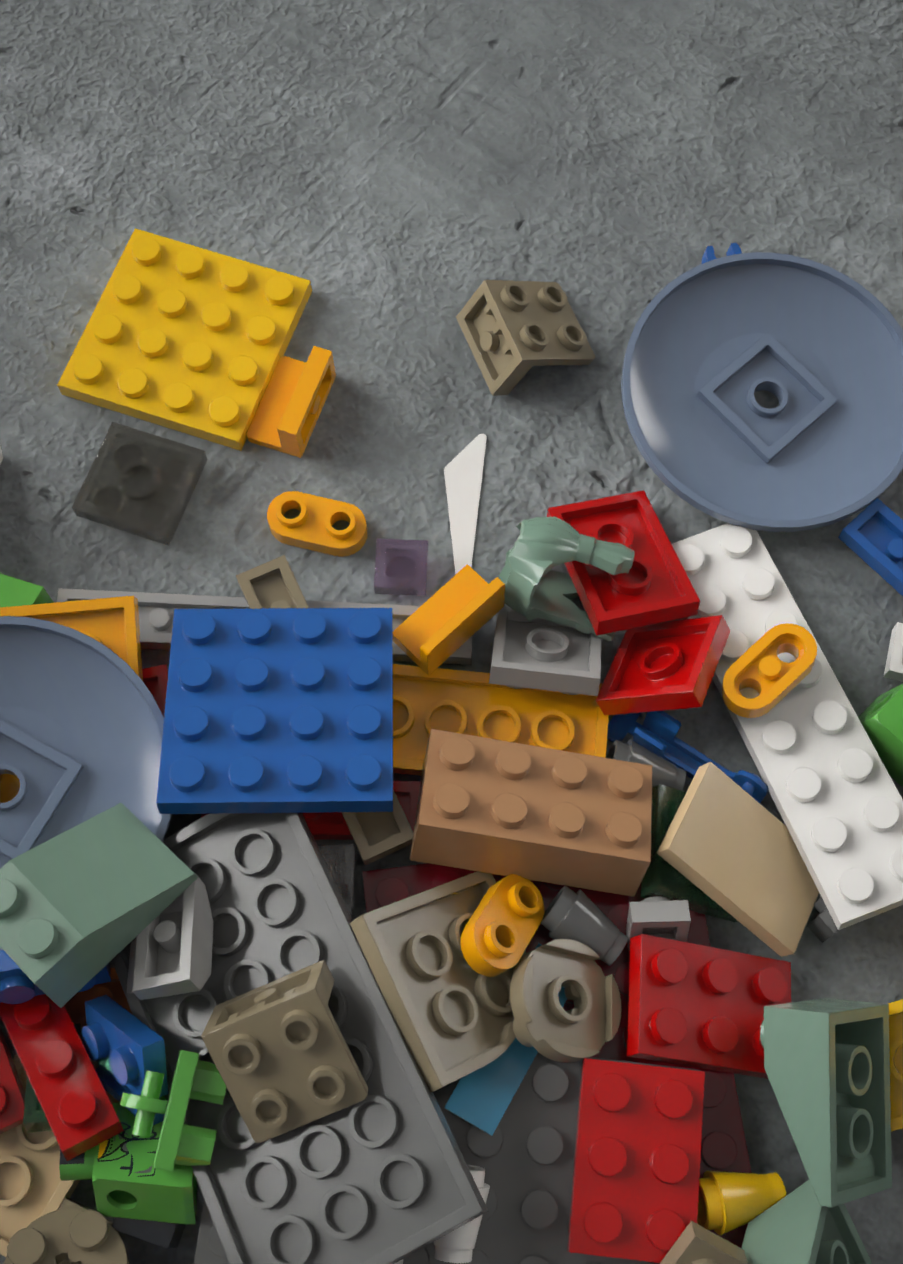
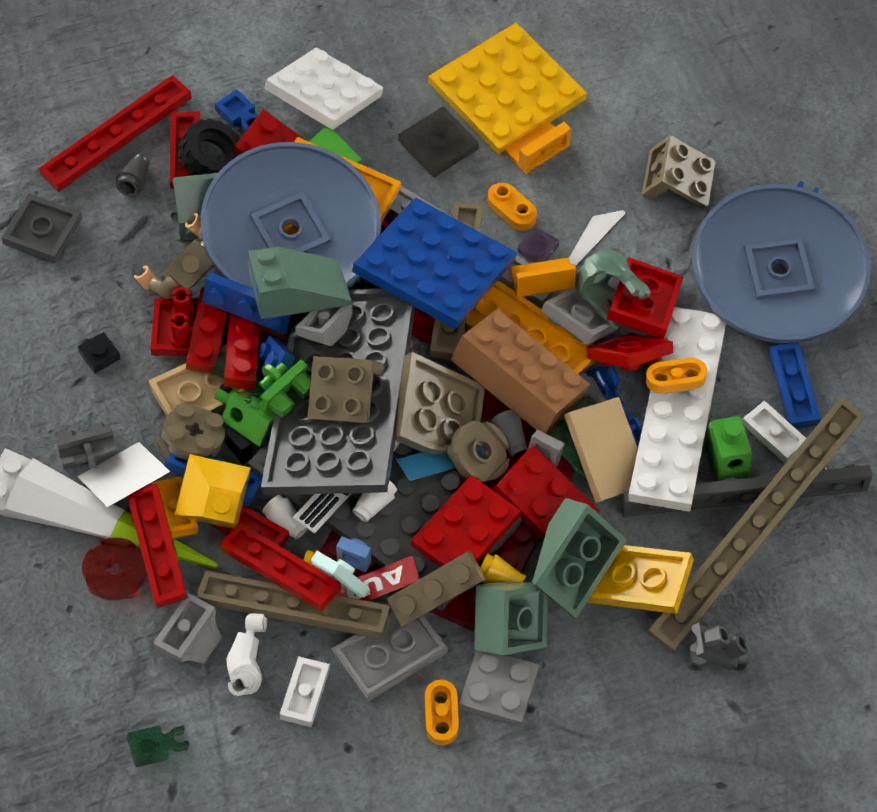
camera: 30 degrees right, 10 degrees down
(507, 914) = (473, 406): light orange plate -> none

